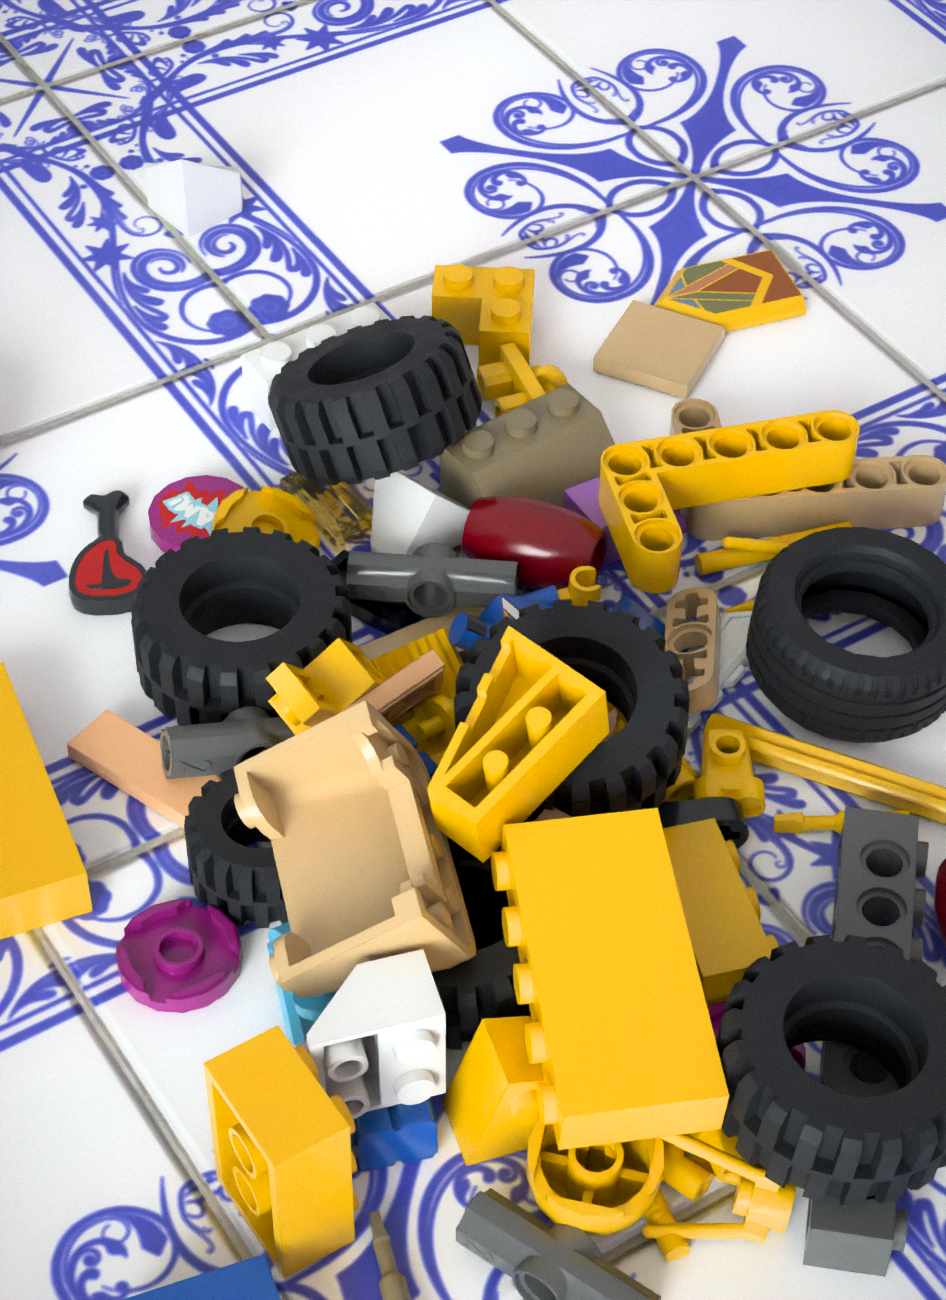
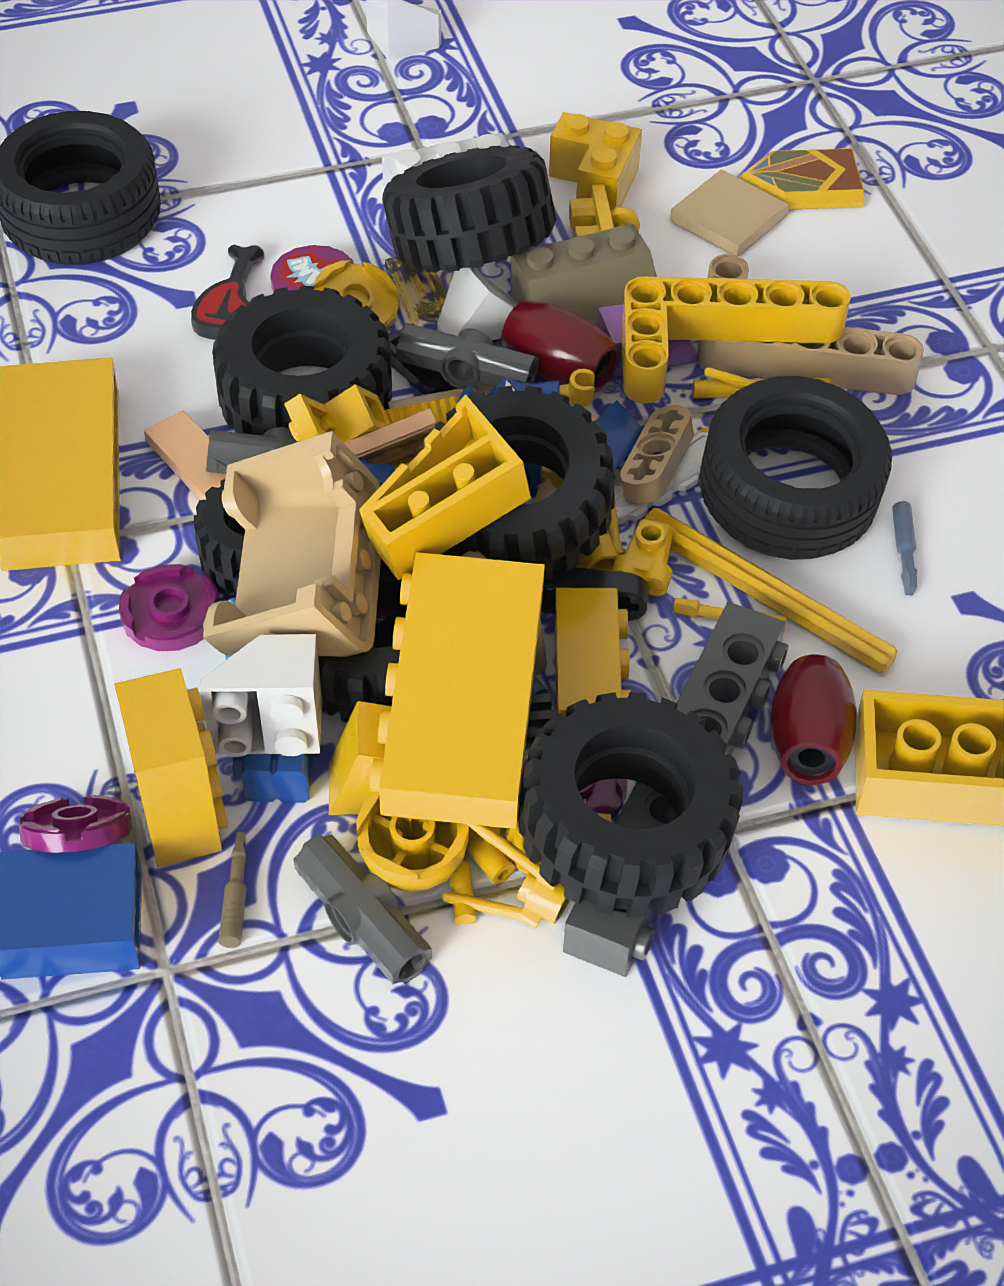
camera: 15 degrees right, 5 degrees up
(179, 1254) = (75, 828): none -> magenta tile

